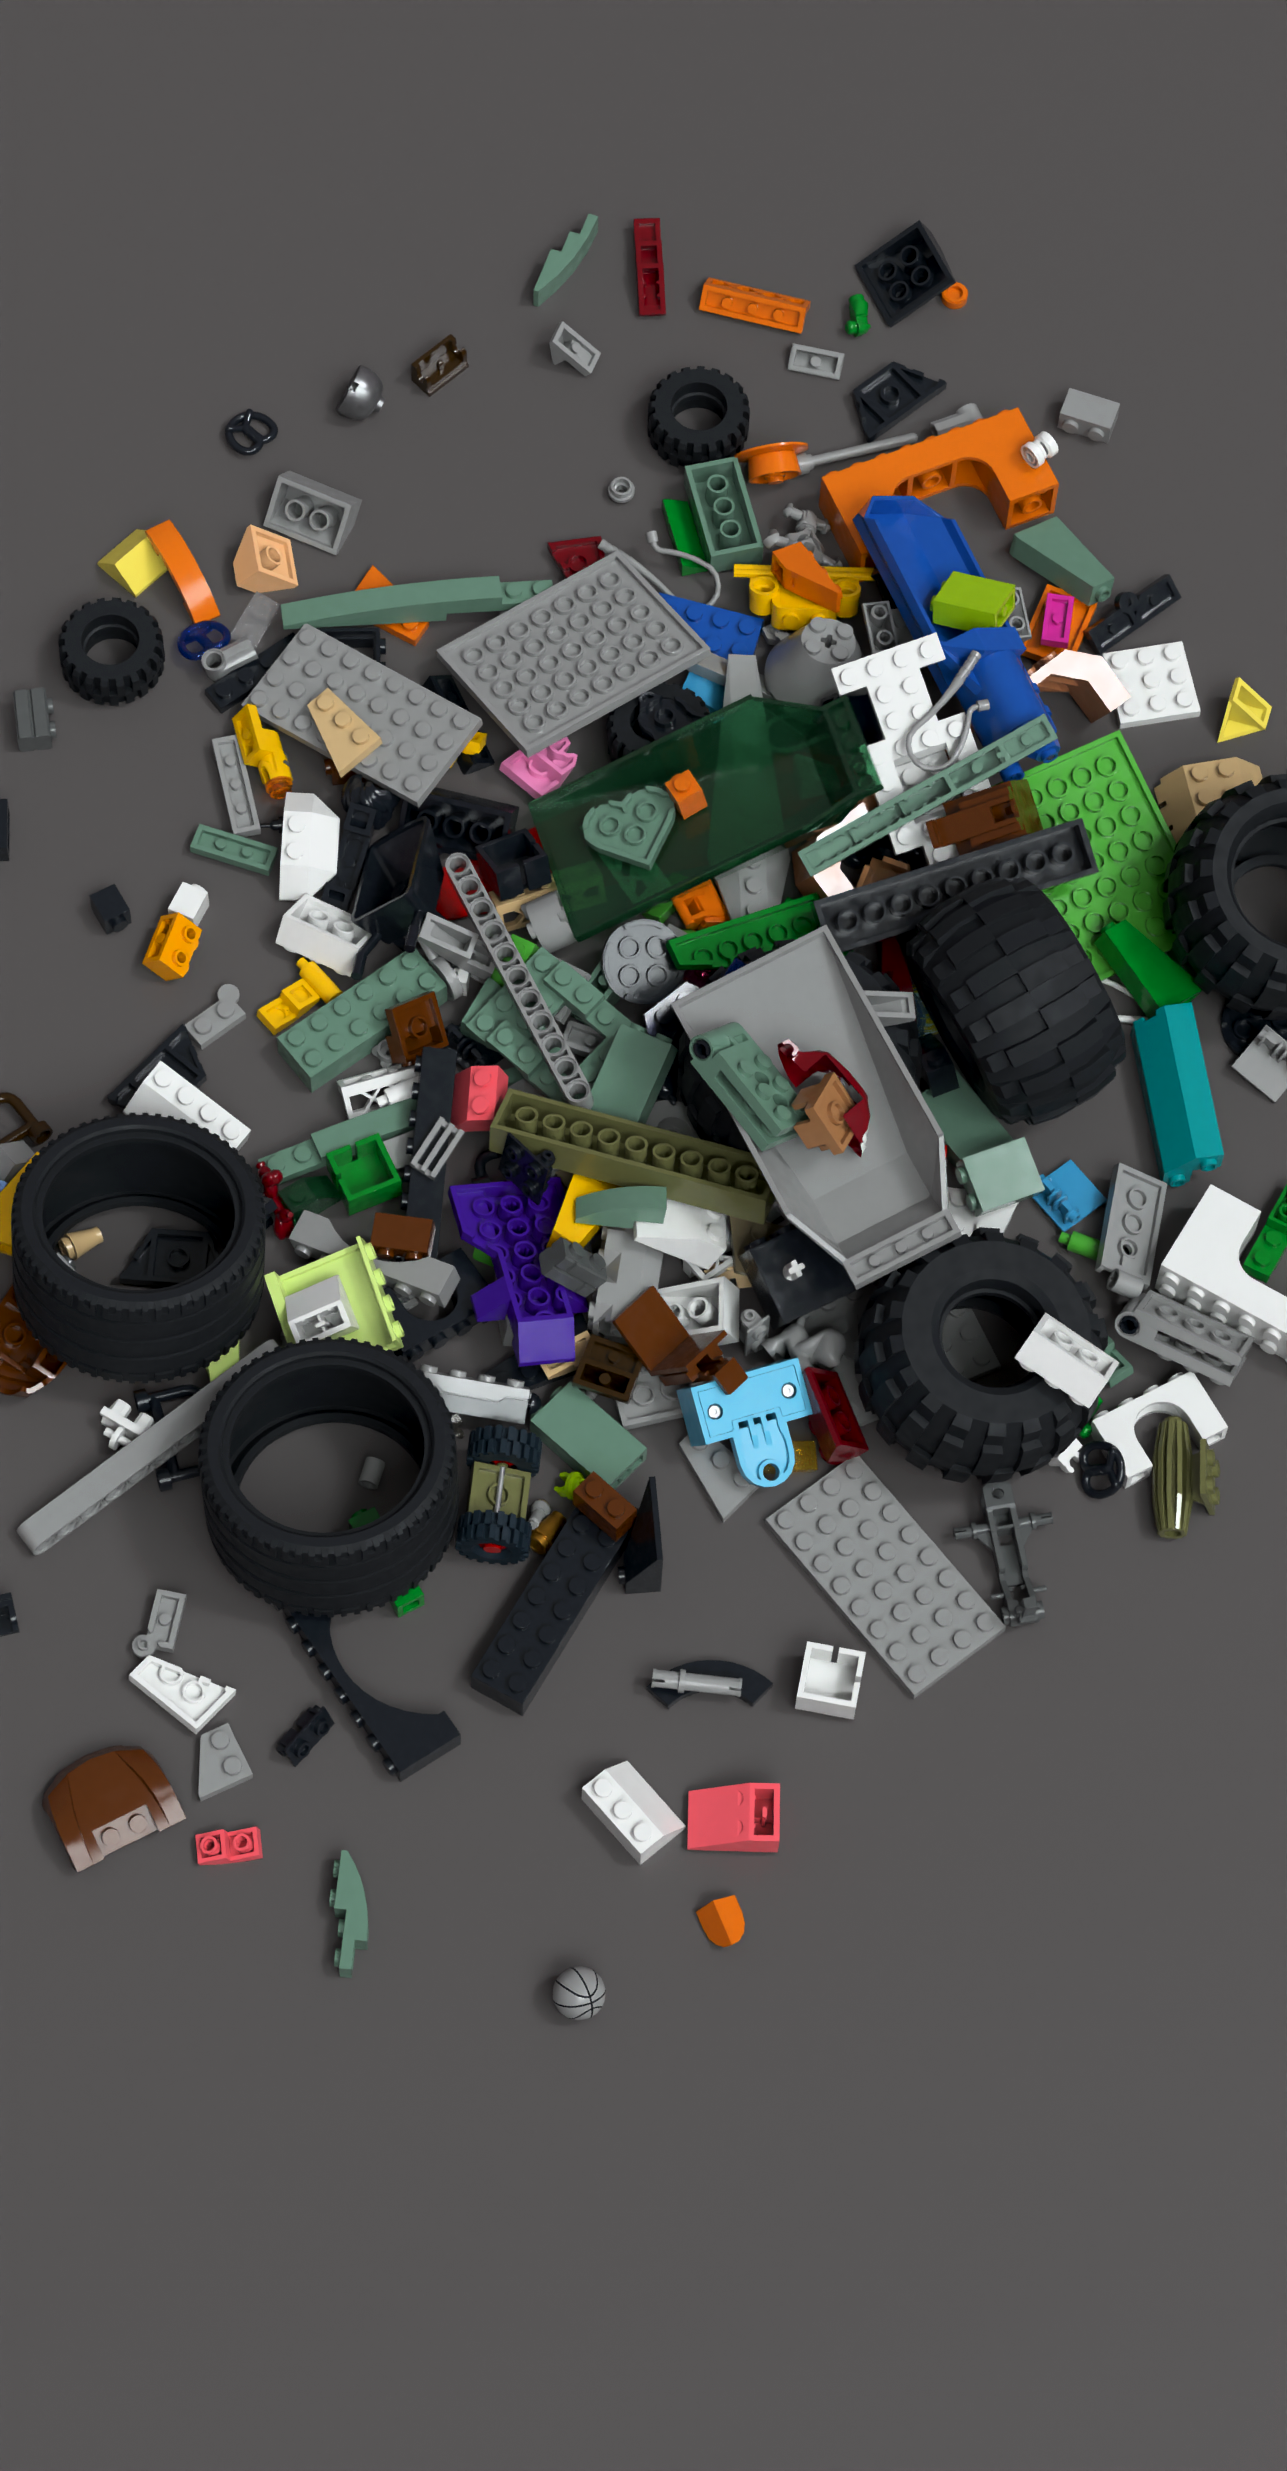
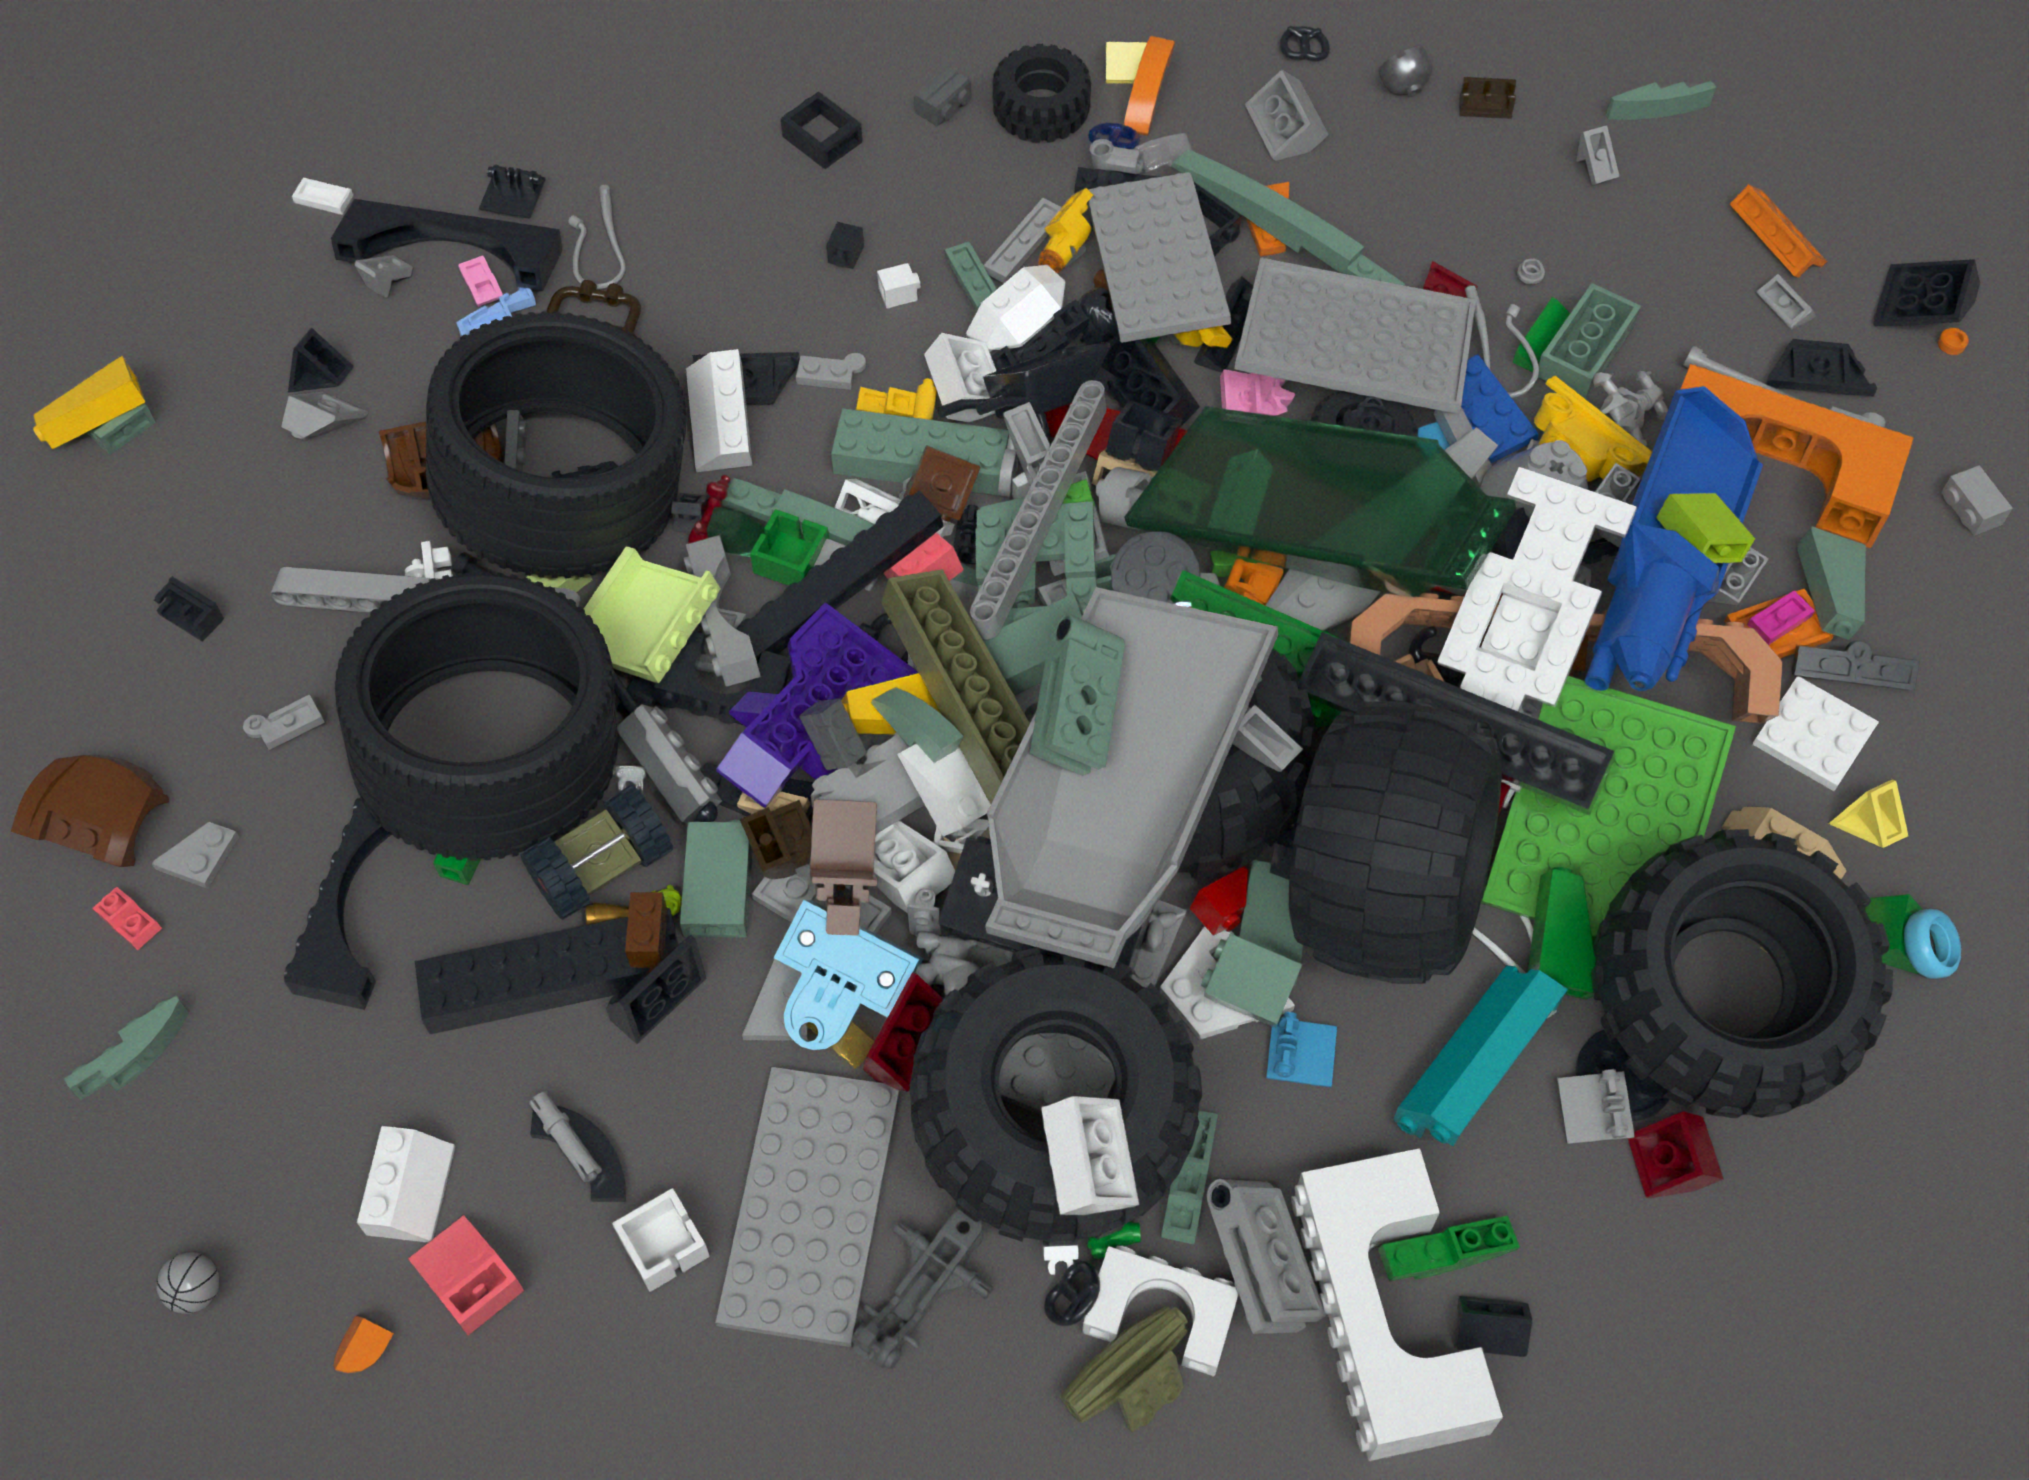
camera: 50 degrees right, 5 degrees down
(80, 1242) = (558, 429): tan cone -> none
(172, 946) = (852, 299): light orange brick -> none
(183, 1695) = (235, 781): white wing -> none
(264, 562) = (1215, 122): light nougat slope -> none
(314, 1725) = (269, 894): black hinge -> none
(320, 1311) = (626, 605): white slope -> none
(343, 732) = (1123, 251): tan wing -> none
(402, 1236) = (751, 607): reddish brown brick -> none
(449, 1128) = (850, 568): light grey tile -> none
(525, 1169) = (891, 641): black hinge -> none
(539, 1510) = (619, 896): light grey piece -> none
(631, 828) = (1256, 478): sand green plate -> none
(649, 267) = (1721, 150): dark red slope -> none
(686, 794) = (1319, 483): orange brick -> none
(697, 390) = (1651, 241): black tyre -> none
(772, 462) = (1668, 332): orange piece -> none
(803, 575) = (1597, 418): orange slope -> none
(803, 1064) = (1136, 790): dark red animal -> none
(825, 1107) = (1110, 770): medium nougat panel -> none
(858, 313) = (1859, 293): green arm -> none
(927, 795) = (1505, 629): sand green slope -> none
(981, 705) = (1616, 561): light grey piece -> none
(986, 818) = (1540, 689): reddish brown piece -> none
(1041, 448) = (1896, 475): white wheel -> none
(1080, 1244) = (1273, 1108): bright green cylinder -> none
(1134, 1222) = (1329, 1121): light grey hinge -> none

